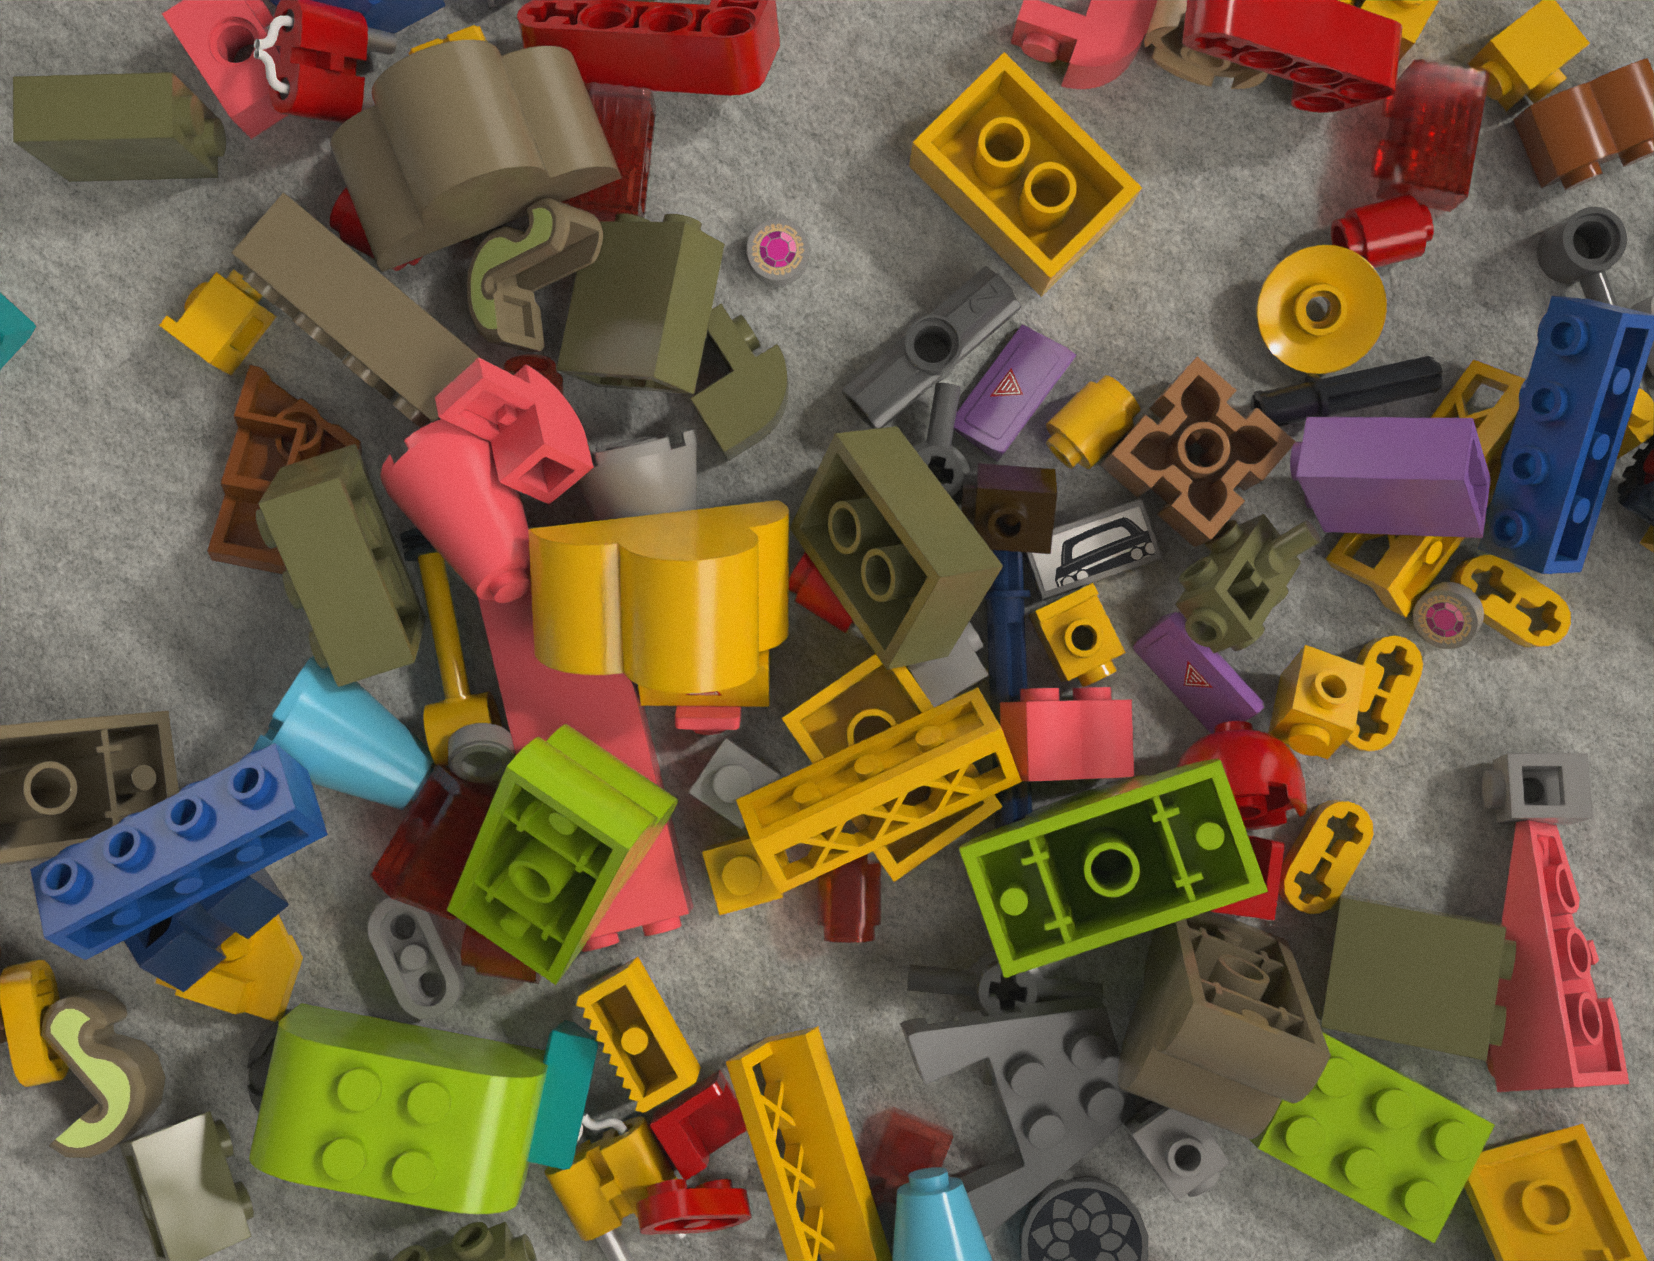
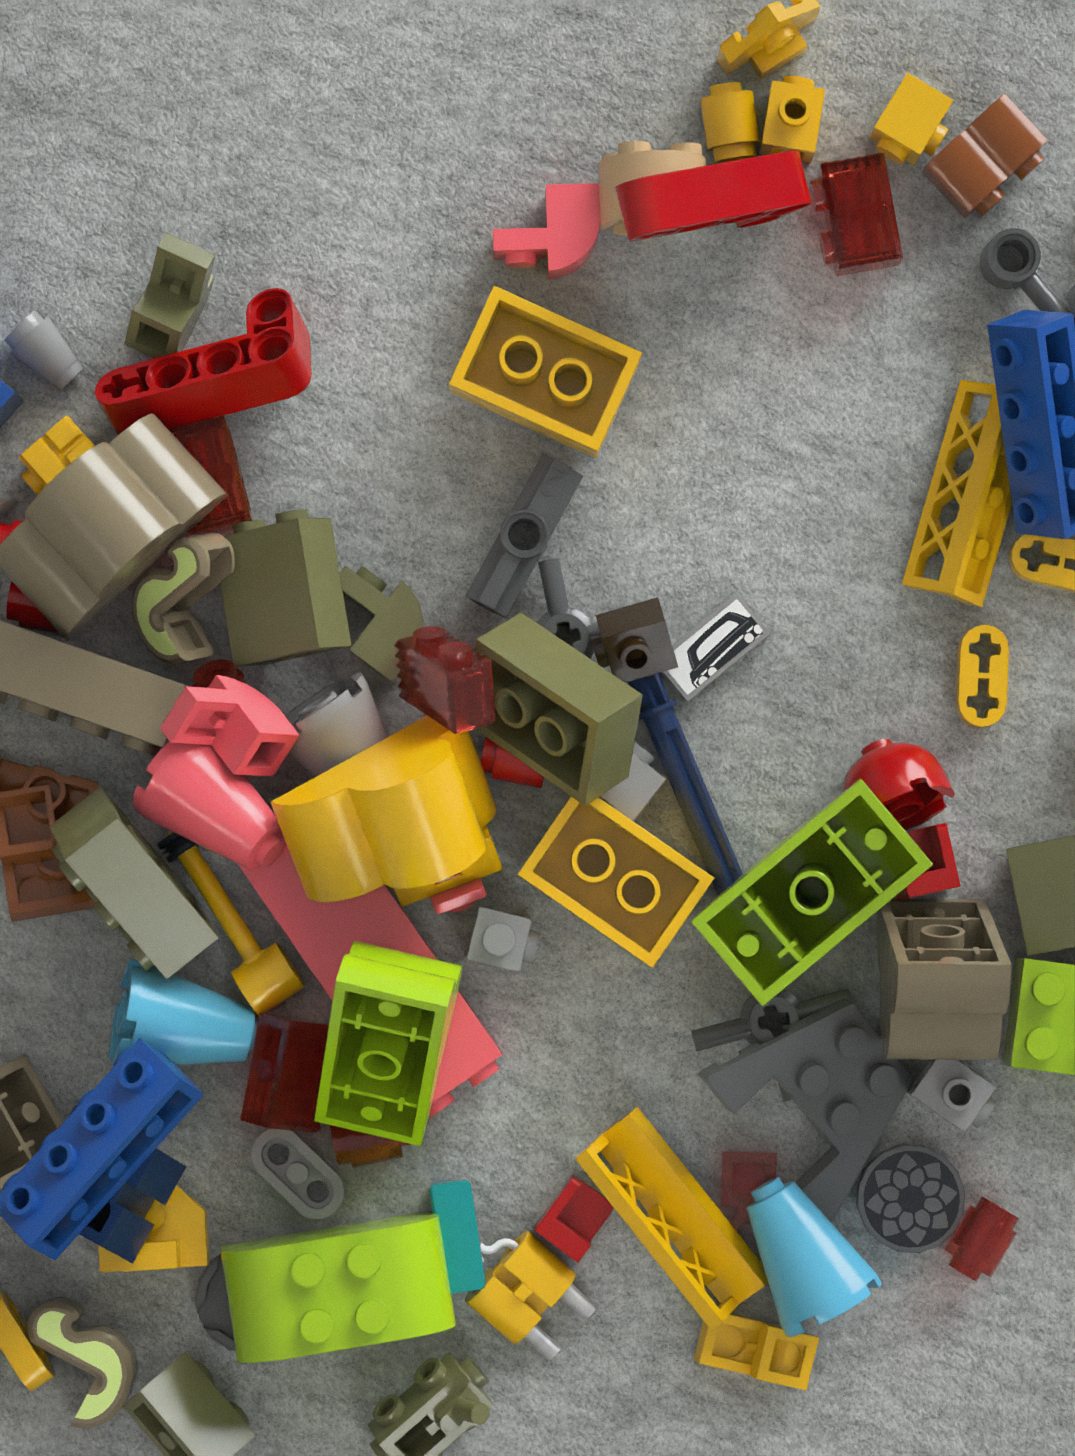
camera: 25 degrees left, 0 degrees up
(480, 752) = (292, 990): light grey tile -> none
(639, 1035) = (499, 1163): yellow brick -> none
(700, 1209) = (593, 1282): red plate -> none
(739, 875) = (535, 1005): yellow brick -> none
(778, 252) = (371, 502): tile -> none
(784, 469) = (446, 679): none -> clear red brick
(850, 901) = (622, 994): clear red brick -> none
(874, 782) = (608, 894): yellow fence -> none
(1011, 391) = (600, 544): medium lavender slope -> none
(1055, 627) = (705, 718): yellow brick -> none
(1069, 737) = (747, 805): coral brick -> none
(1091, 423) = (673, 547): yellow brick -> none
(1196, 674) = (830, 714): medium lavender slope -> none
(1235, 453) = (795, 530): medium nougat brick -> none
(1241, 581) = (835, 631): olive brick -> none
(1317, 702) = (932, 703): yellow brick -> none
(1337, 864) = (1001, 822): yellow beam -> none
(1349, 391) = (868, 445): black axle -> none
(1353, 313) = (841, 407): yellow dish -> none
(1385, 230) = (848, 308): red brick -> none
(1393, 475) = (921, 507): medium lavender brick -> none
(1448, 615) = (1013, 594): tile -> none

